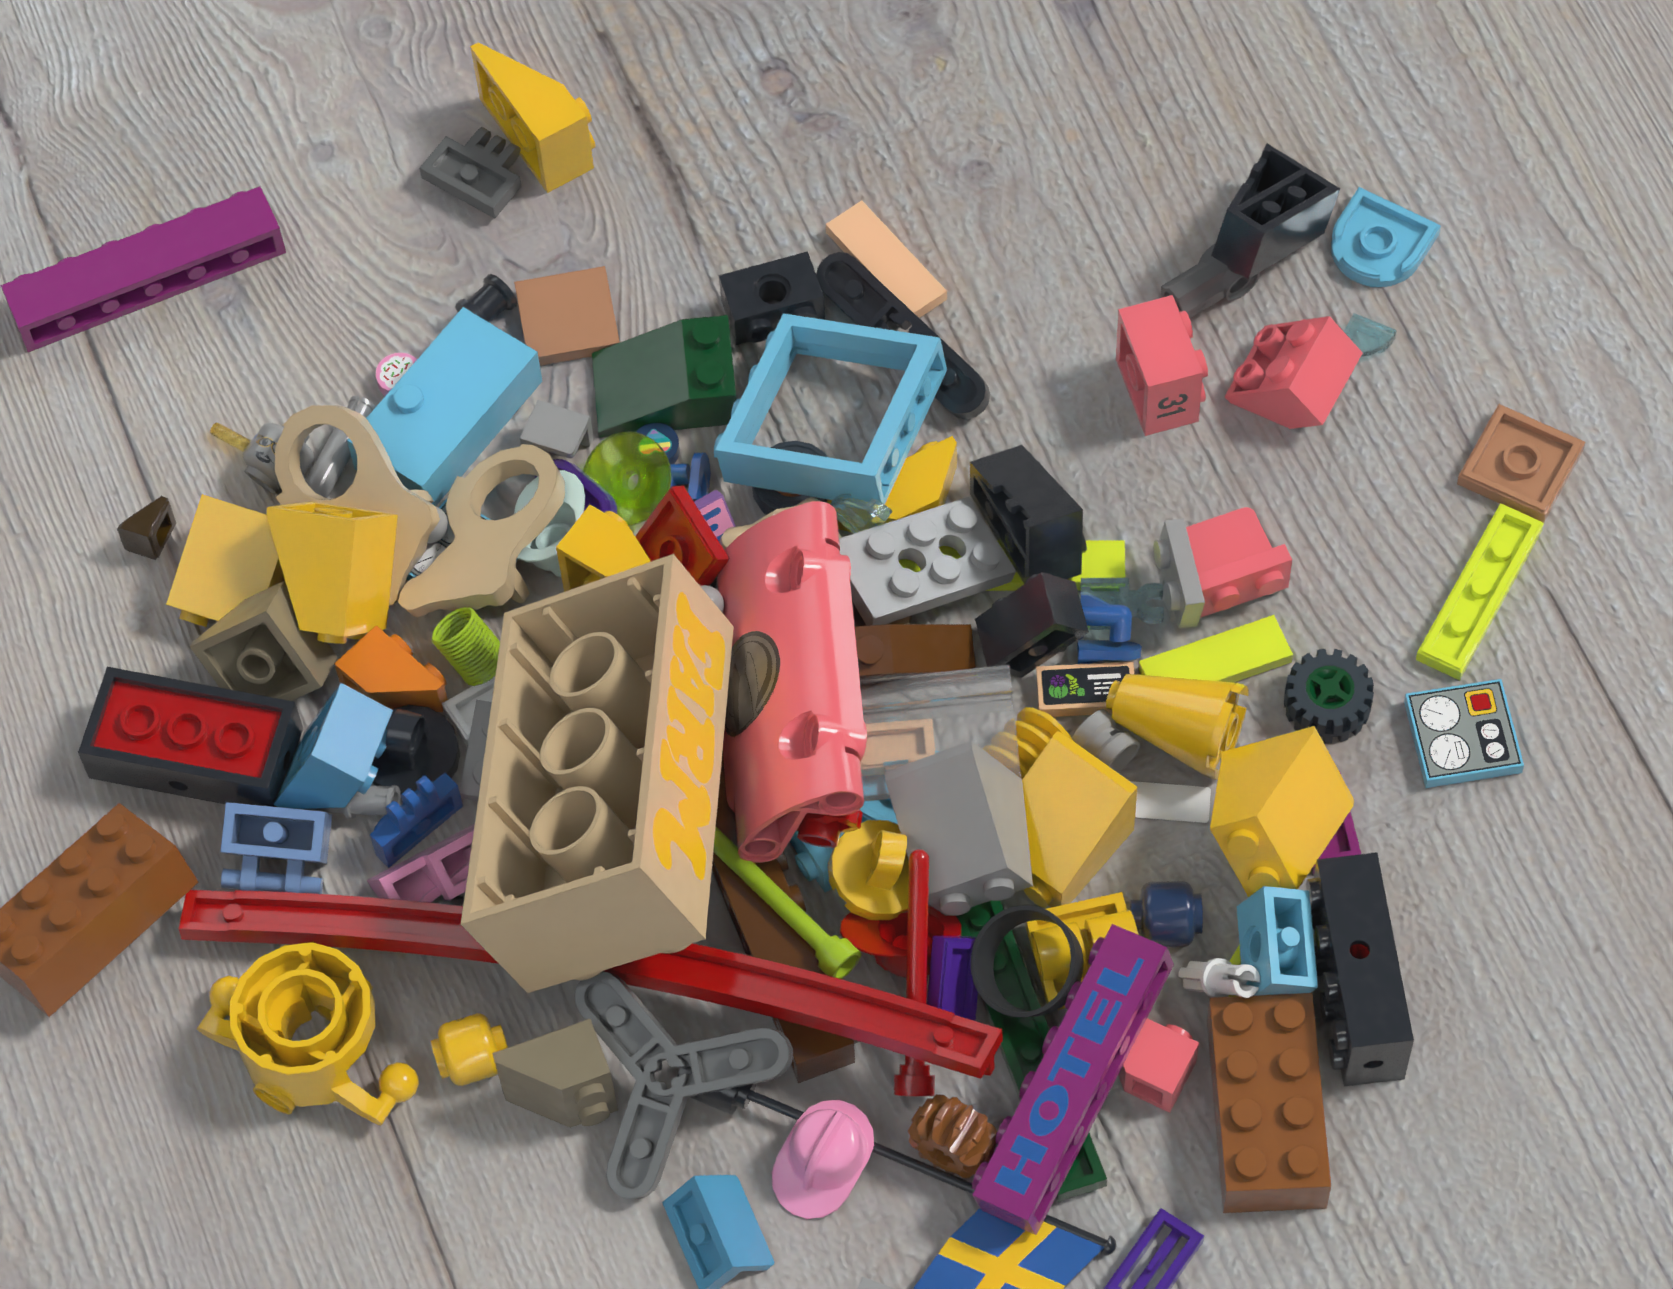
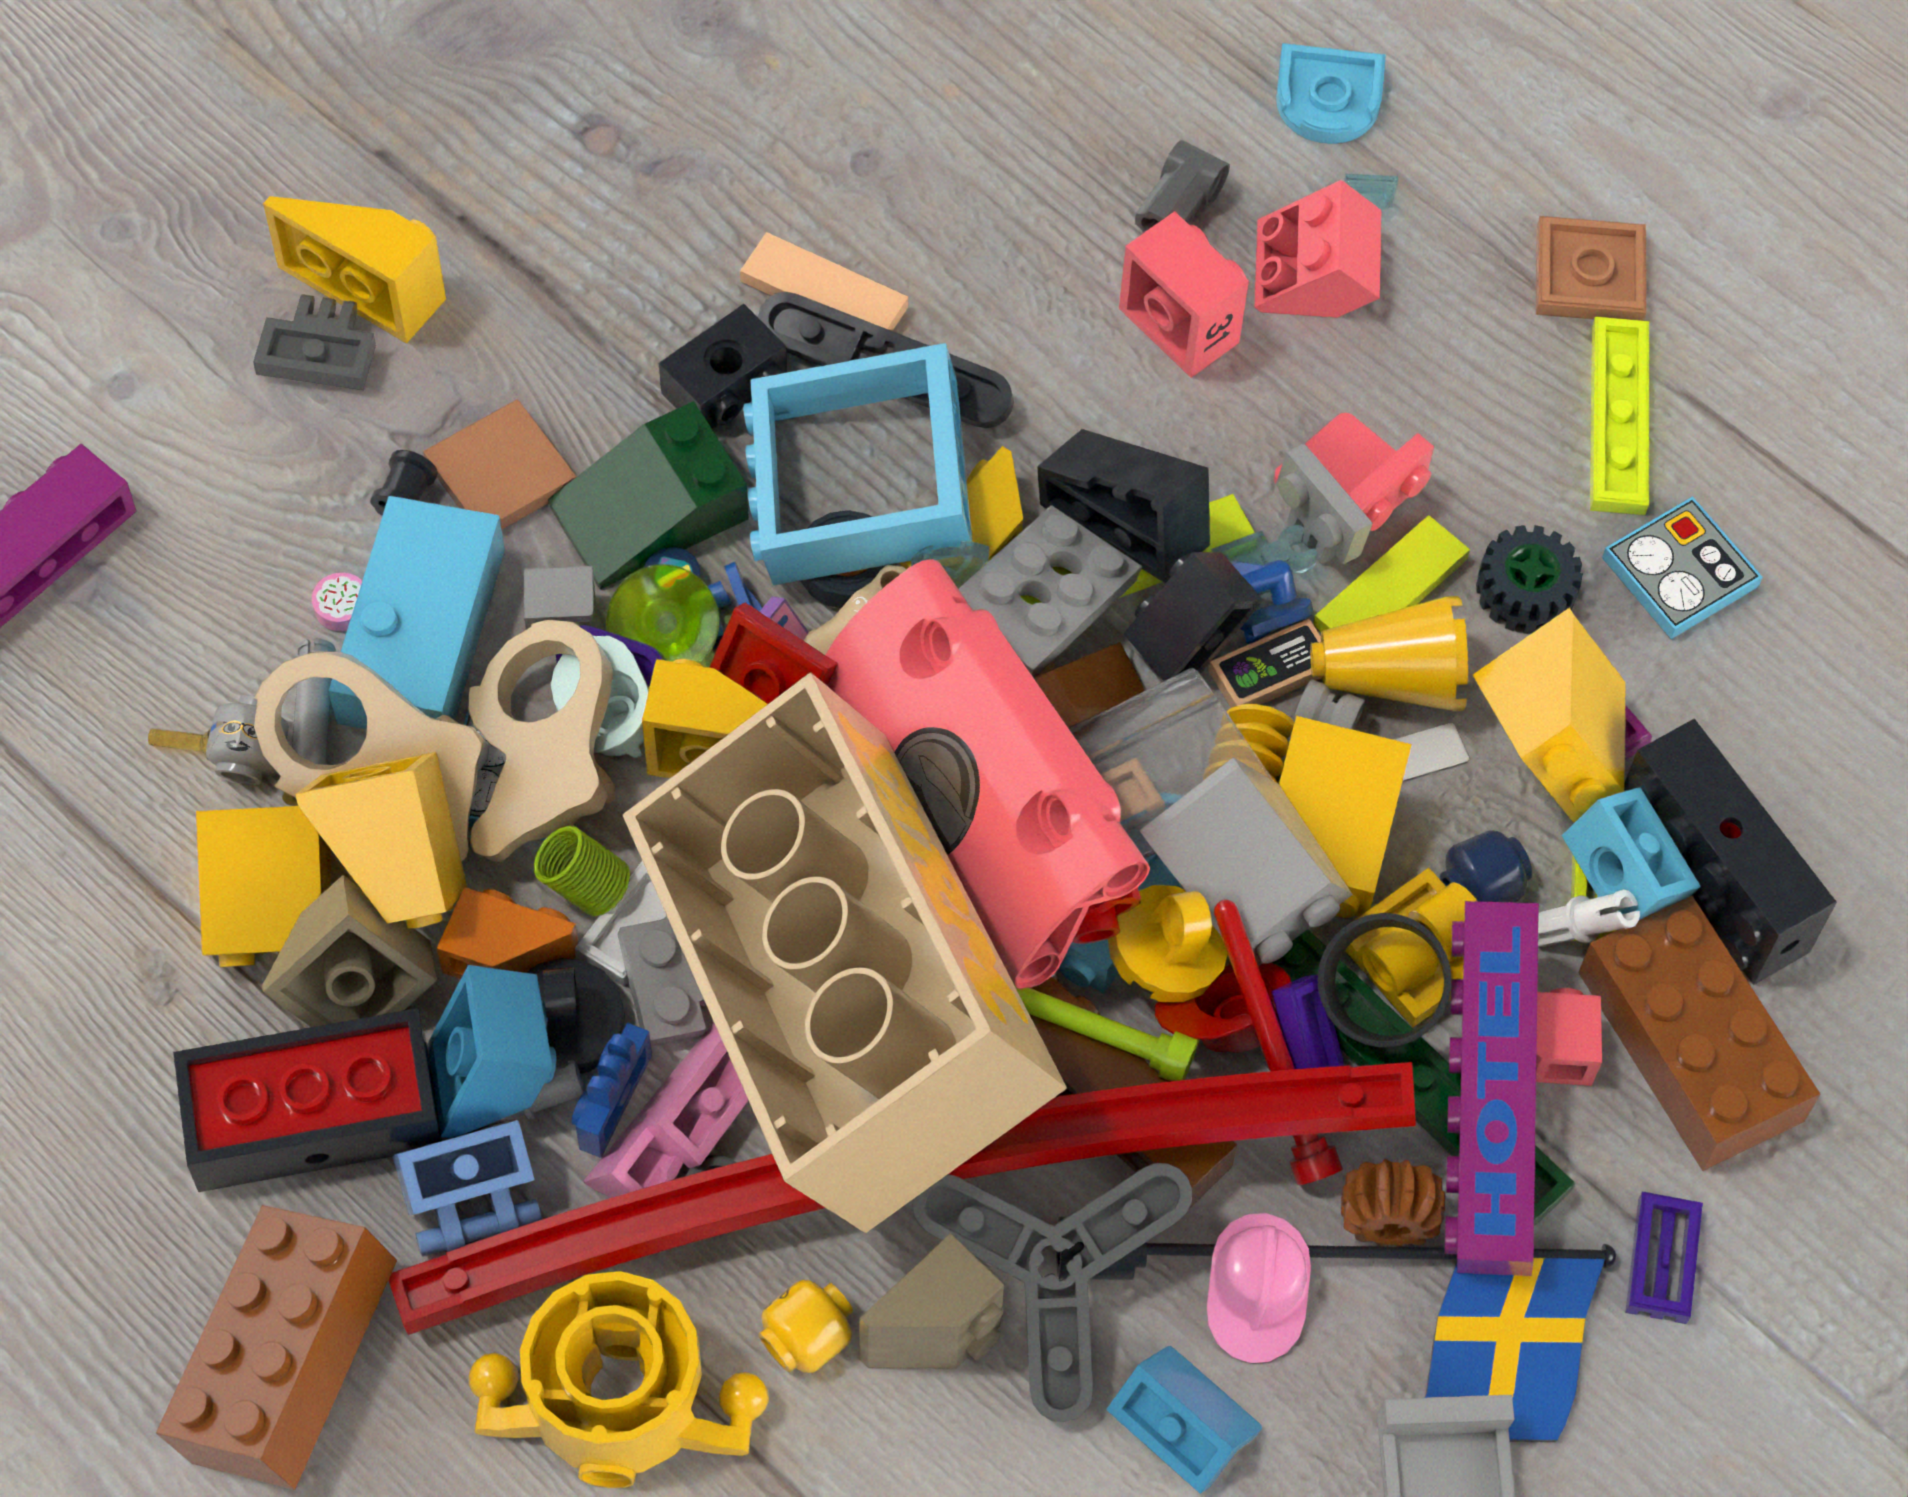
camera: 30 degrees left, 0 degrees up
(148, 529) = (132, 880): dark brown slope -> none
(1273, 214) = (1218, 94): black wedge -> none

